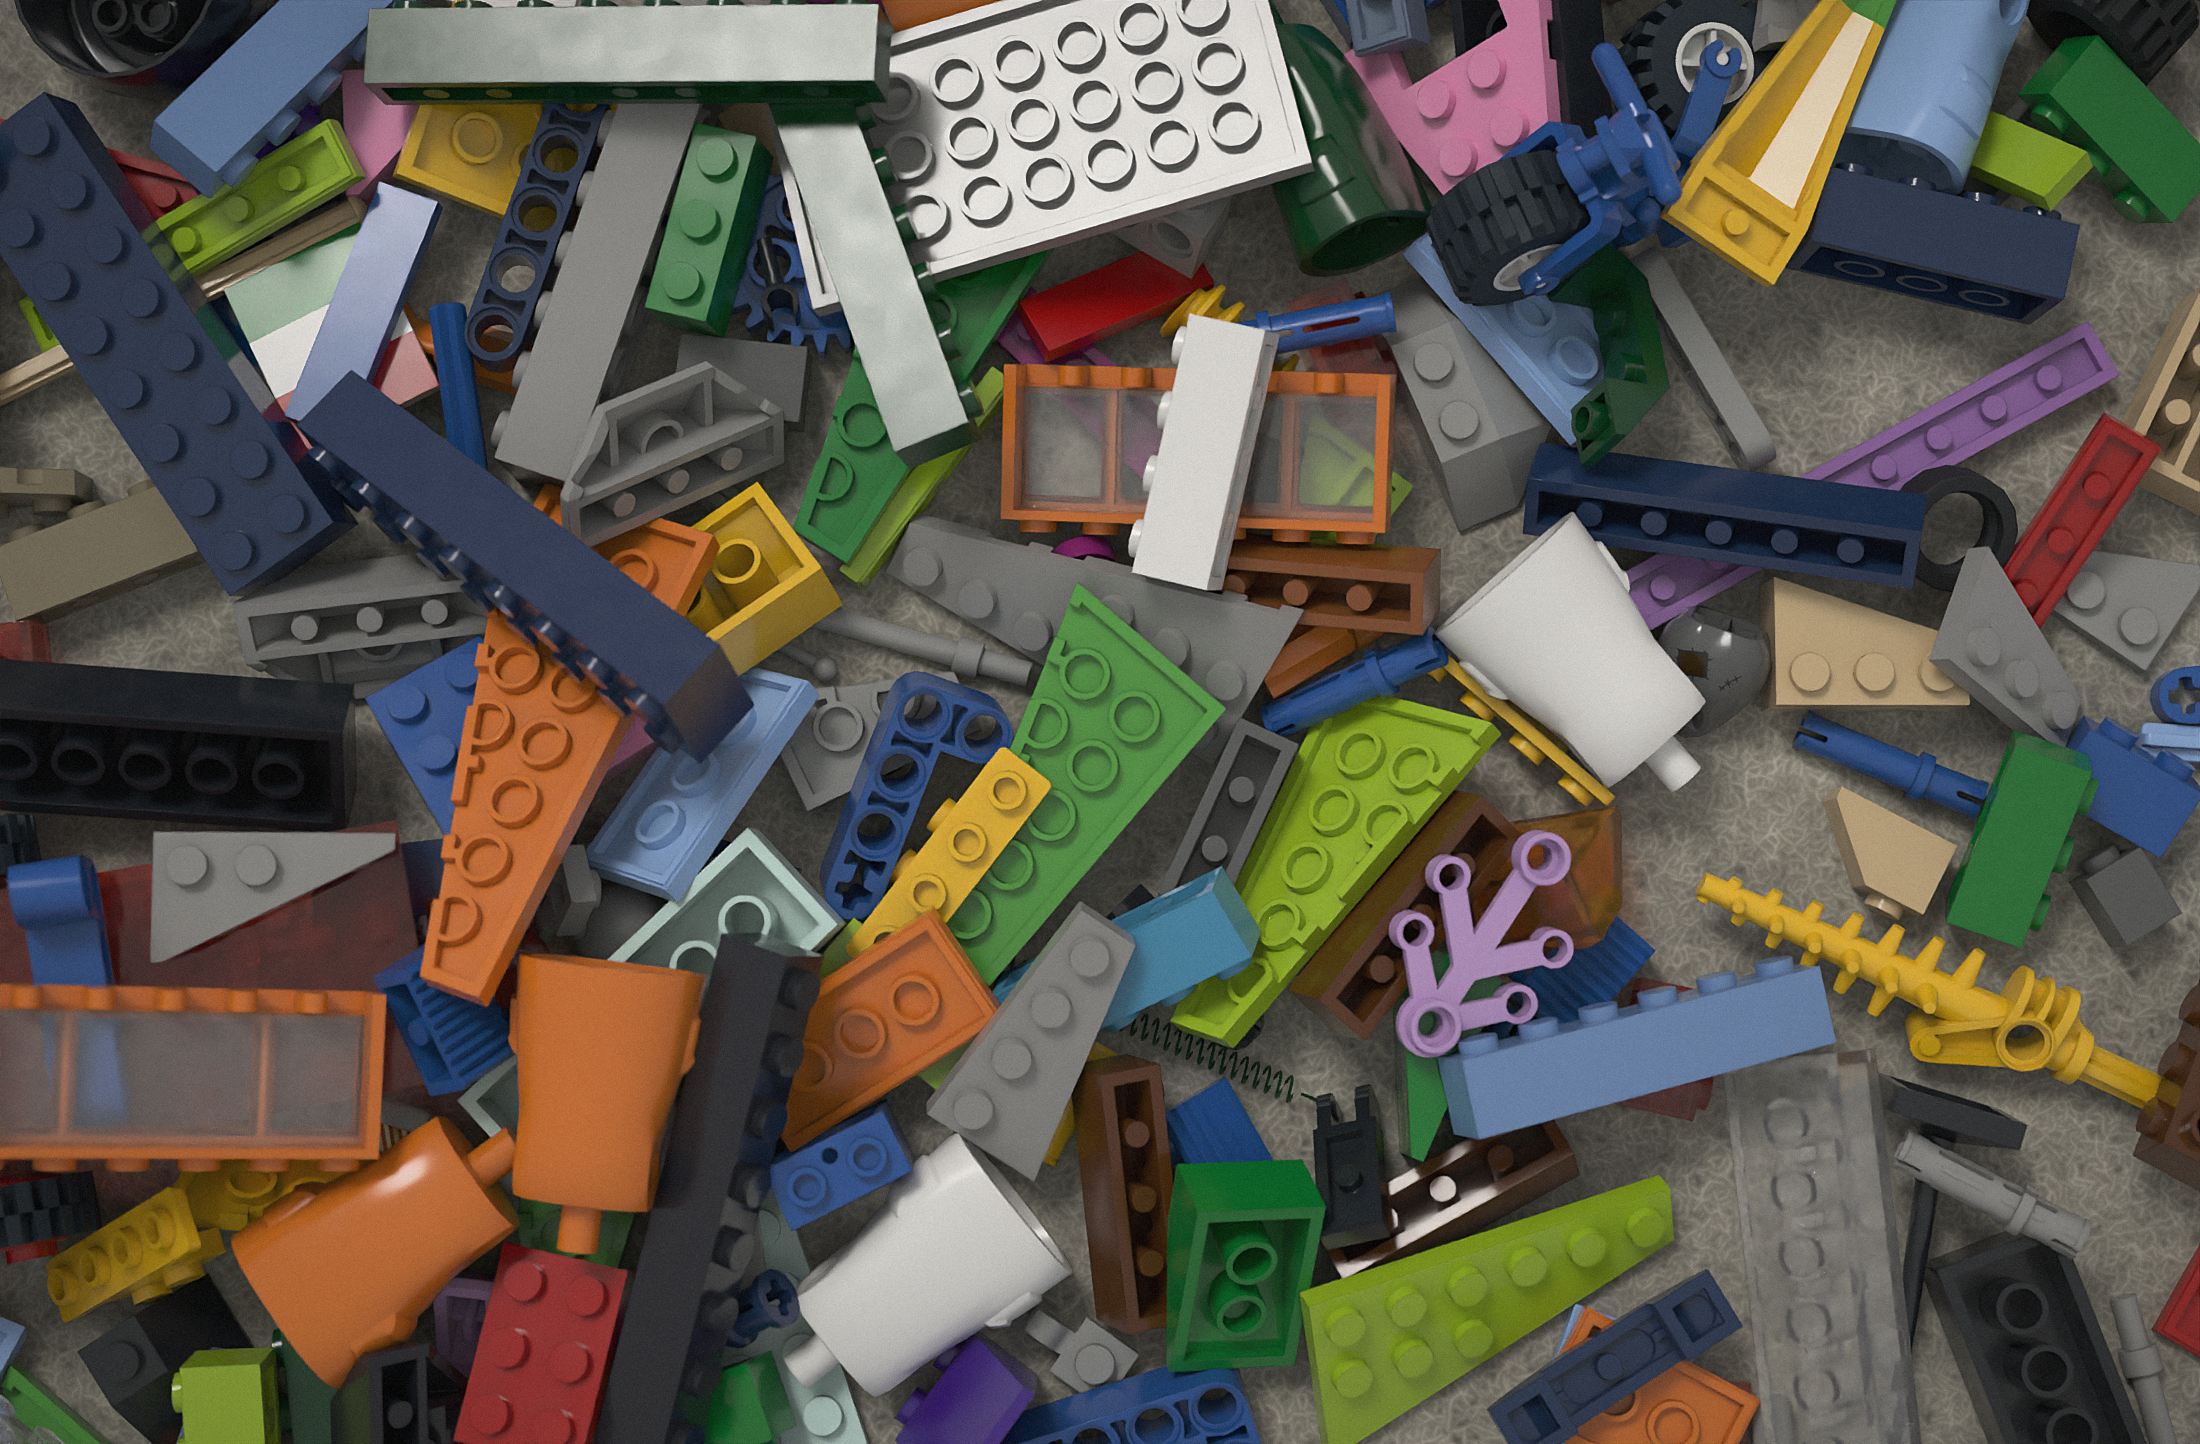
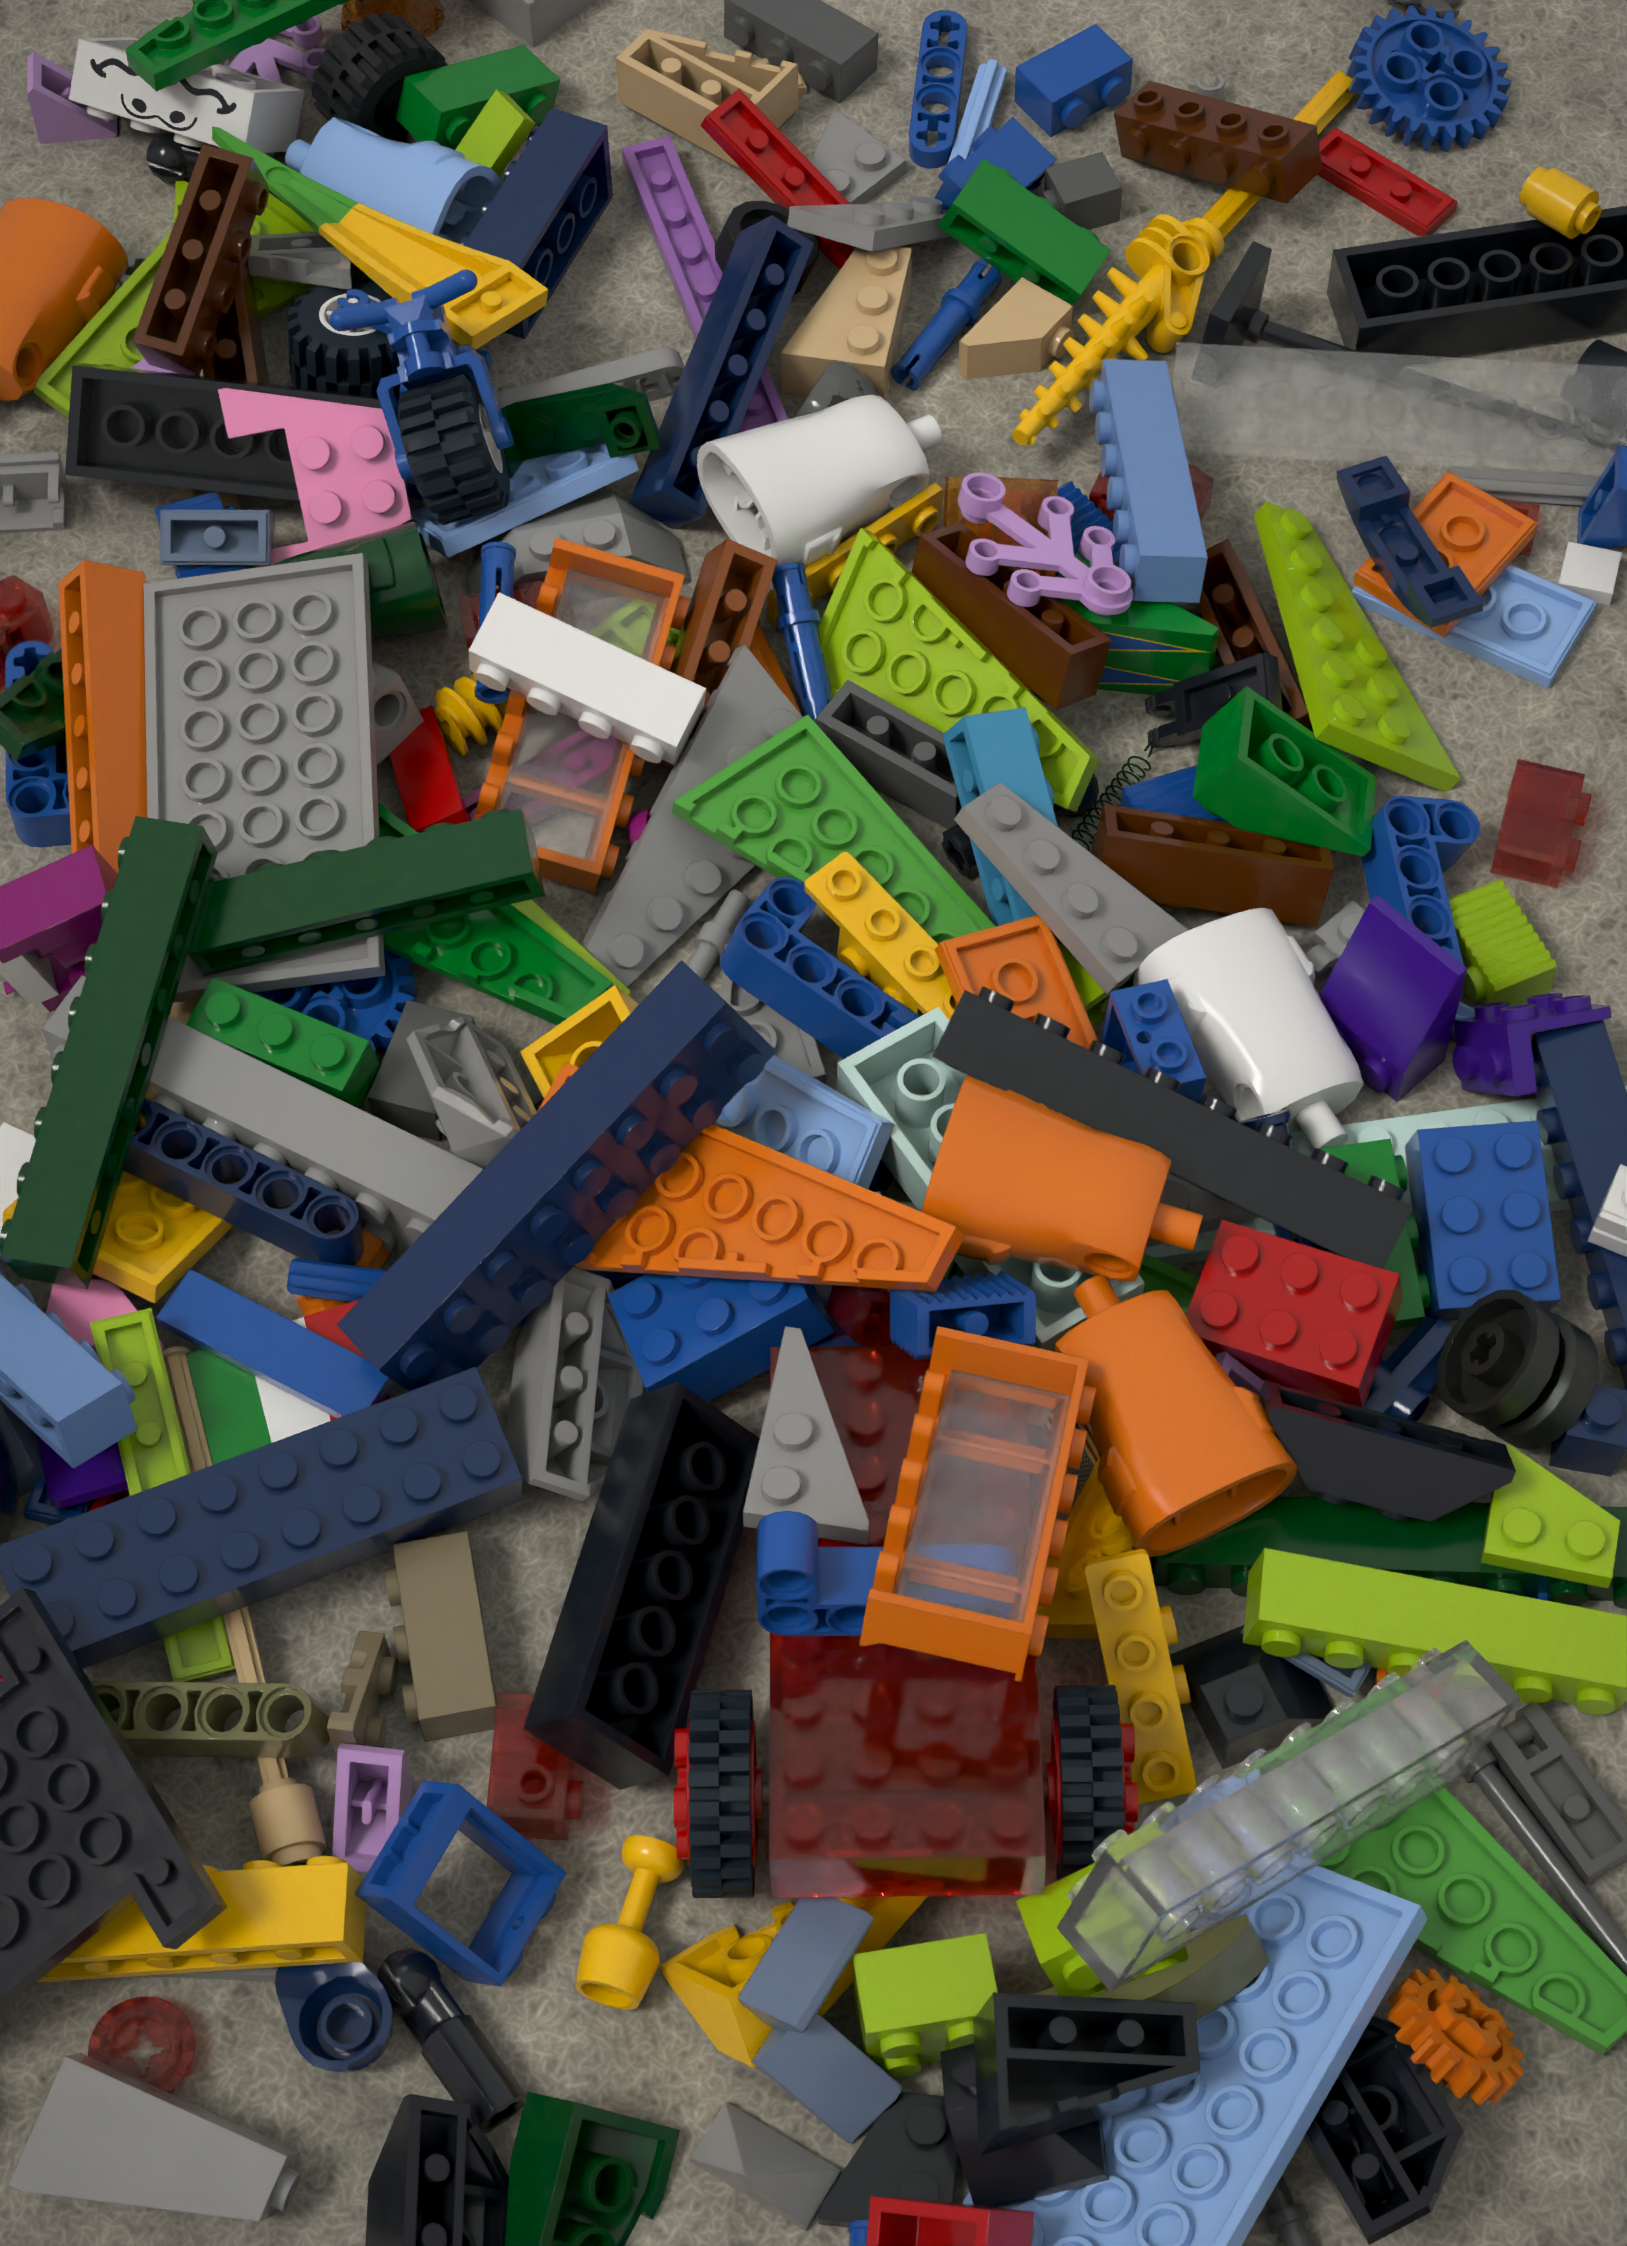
camera: 75 degrees left, 25 degrees down
(777, 292) = (359, 1007): black hand -> none
(2013, 1205) = (1316, 267): light grey pin -> none

